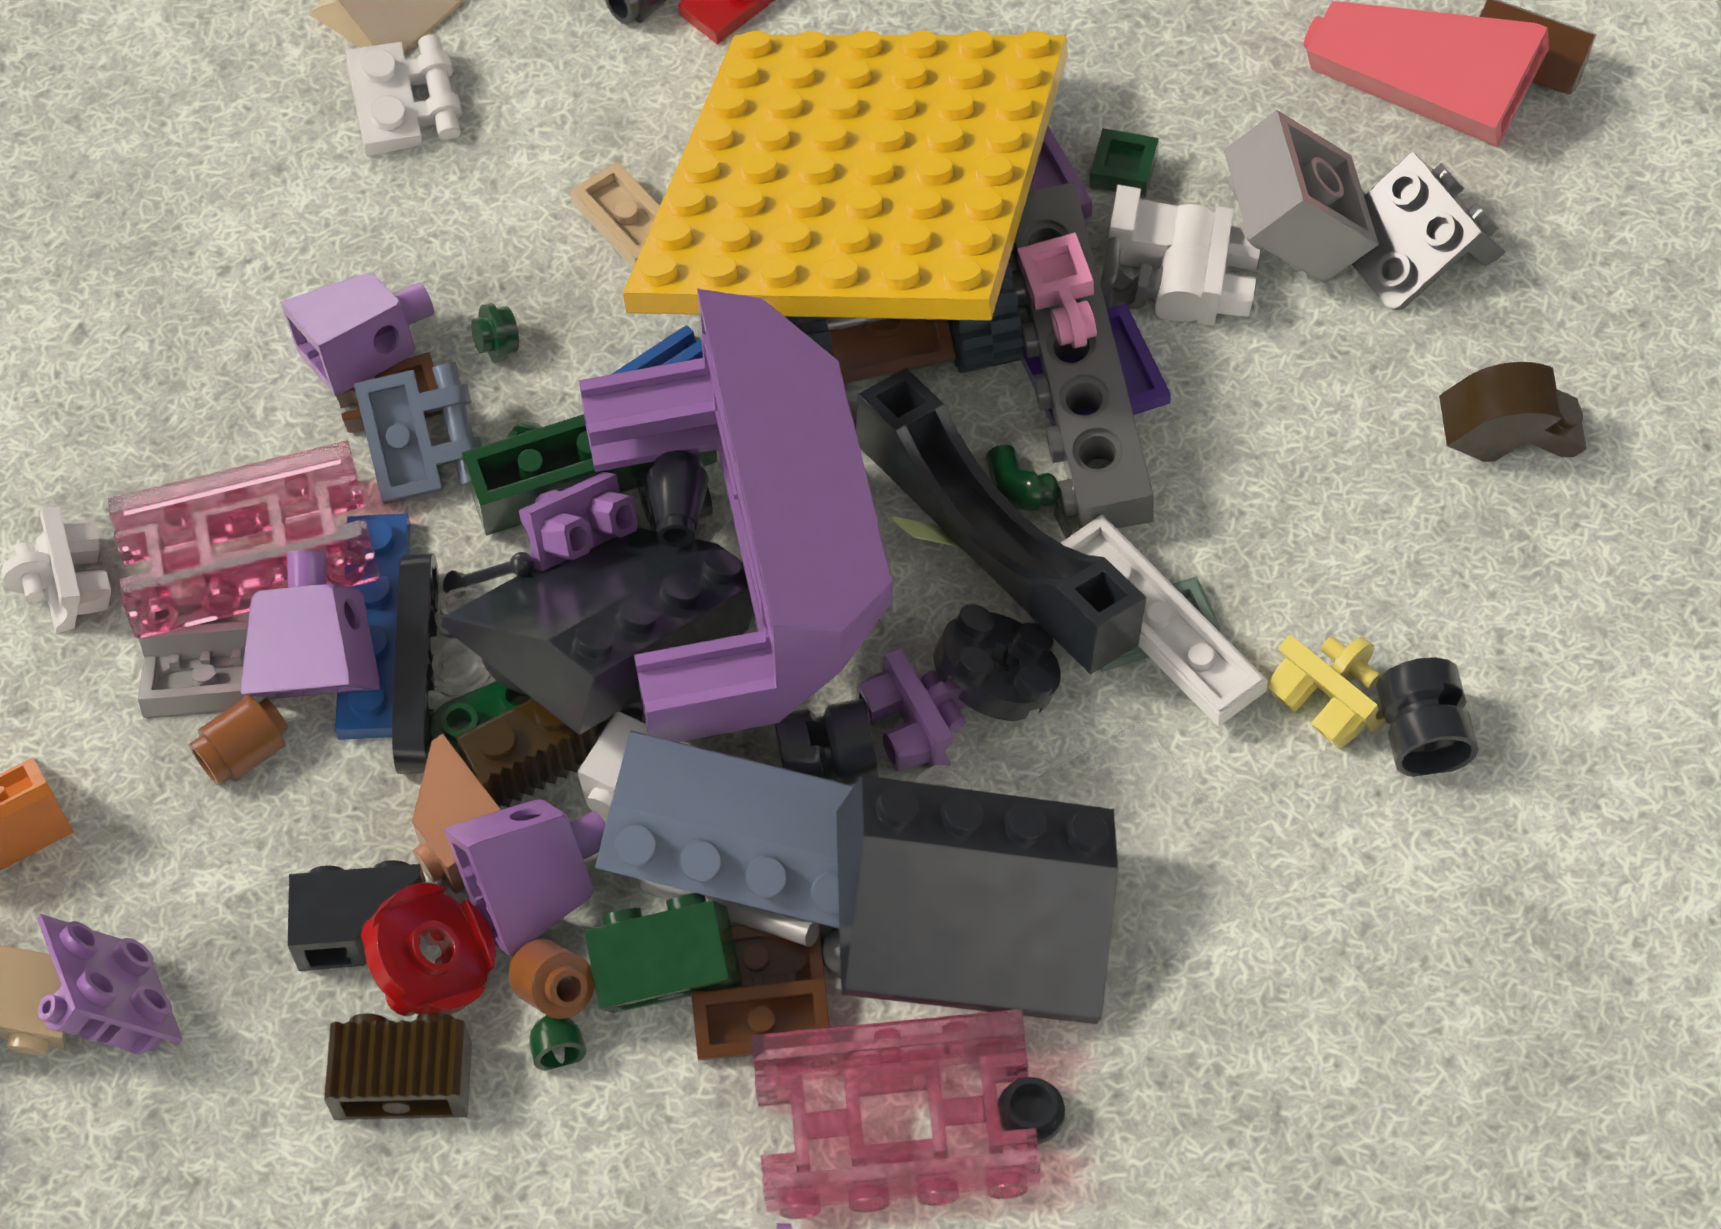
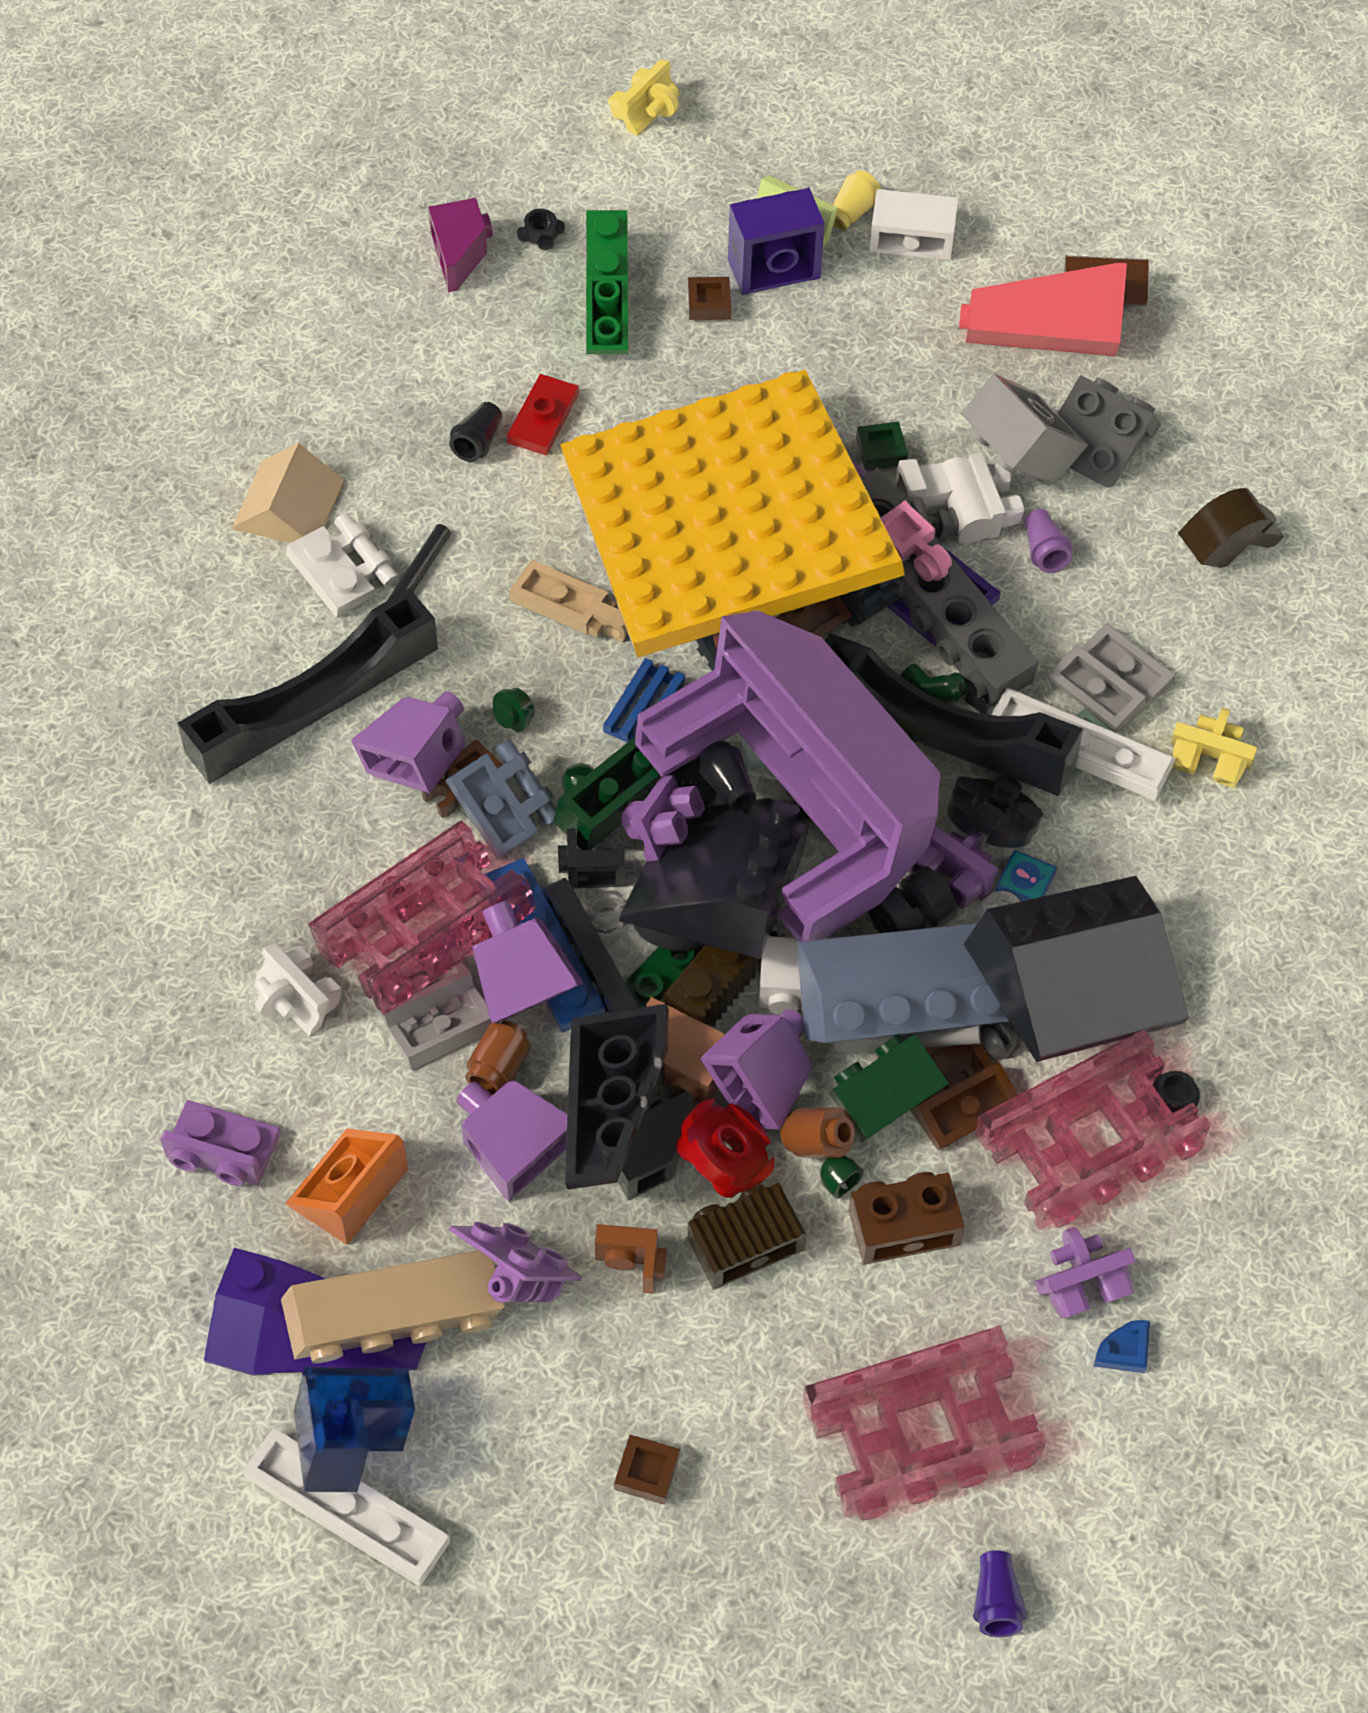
camera: 30 degrees left, 0 degrees up
(168, 247) = (241, 728): none -> black arch
(201, 839) = (512, 1134): none -> medium lavender torso
(258, 1032) = (625, 1246): none -> dark orange bracket
(321, 815) = (610, 1083): none -> black wedge
(468, 549) = (591, 868): none -> black bracket
(476, 137) = (422, 560): none -> black bar
(519, 564) = (642, 860): black hinge -> none
(599, 1126) = (906, 1217): none -> reddish brown brick
(998, 762) = (1026, 876): none -> tile
(1252, 551) = (1111, 677): none -> light grey slope
(1265, 354) = (1047, 543): none -> medium lavender cone
(1427, 717) = (1291, 749): black wheel -> none

